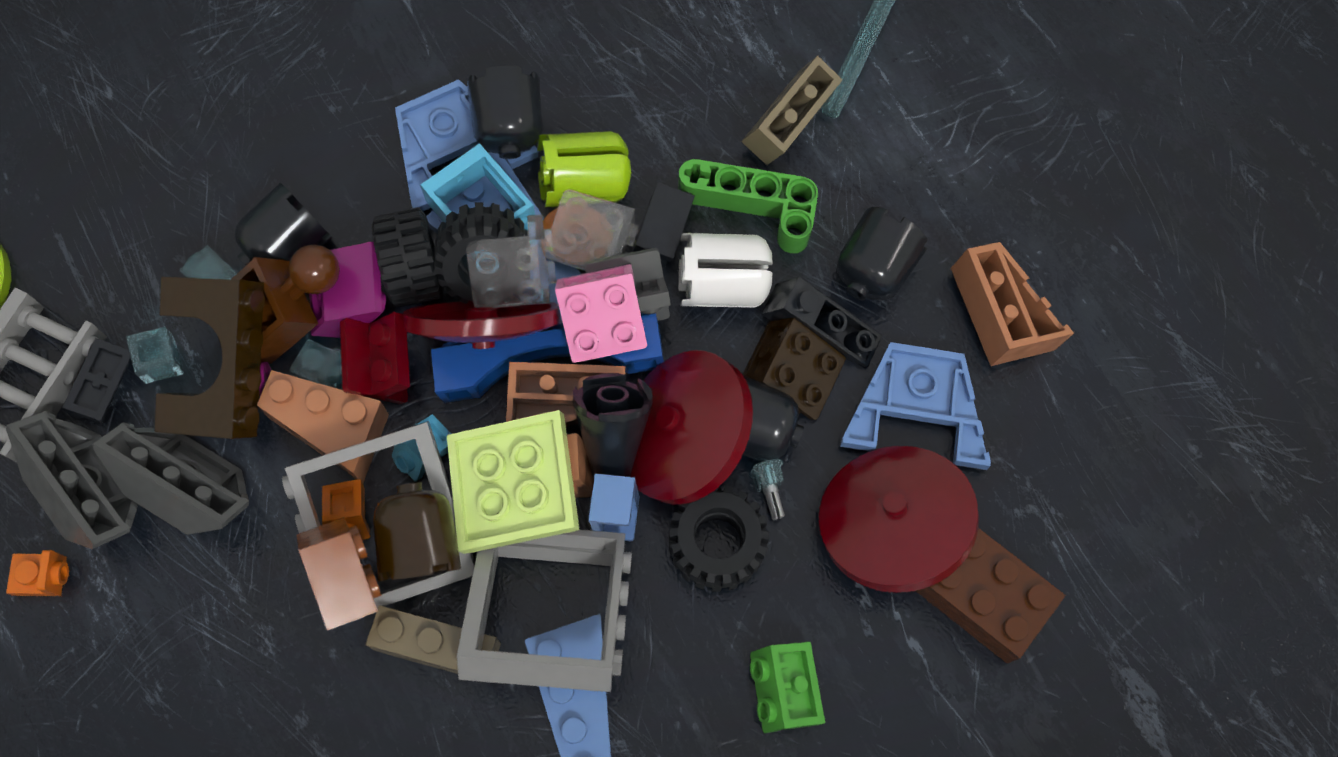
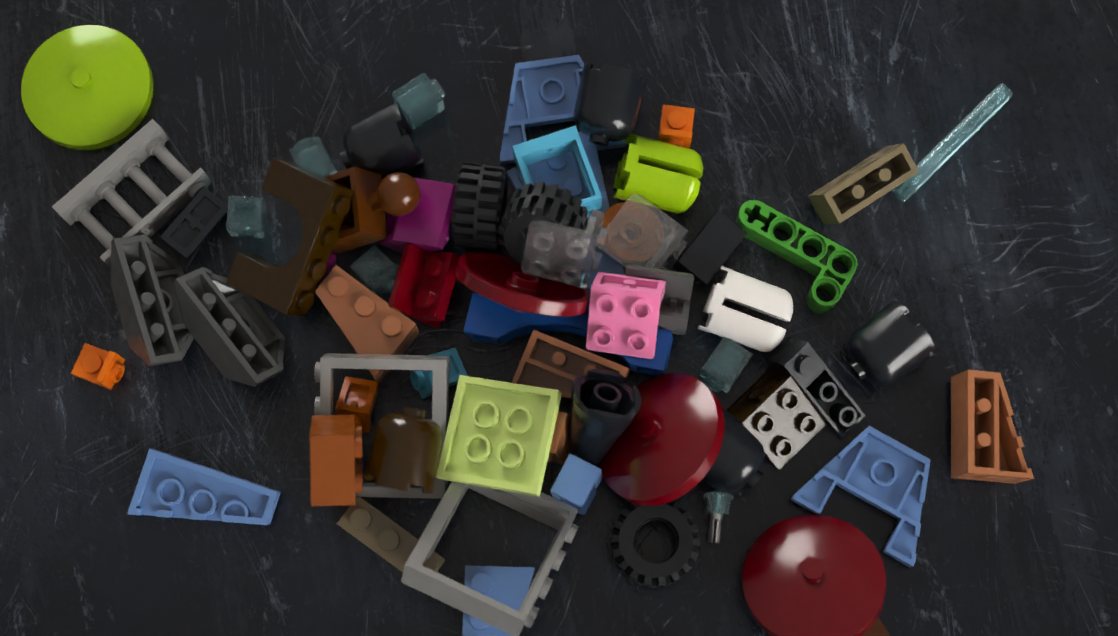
camera: 25 degrees right, 5 degrees up
(186, 672) = (197, 492): none -> medium blue wing
(307, 176) = (419, 99): none -> clear light blue brick
(583, 115) = (676, 125): none -> orange bracket
(723, 331) = (725, 365): none -> clear light blue brick

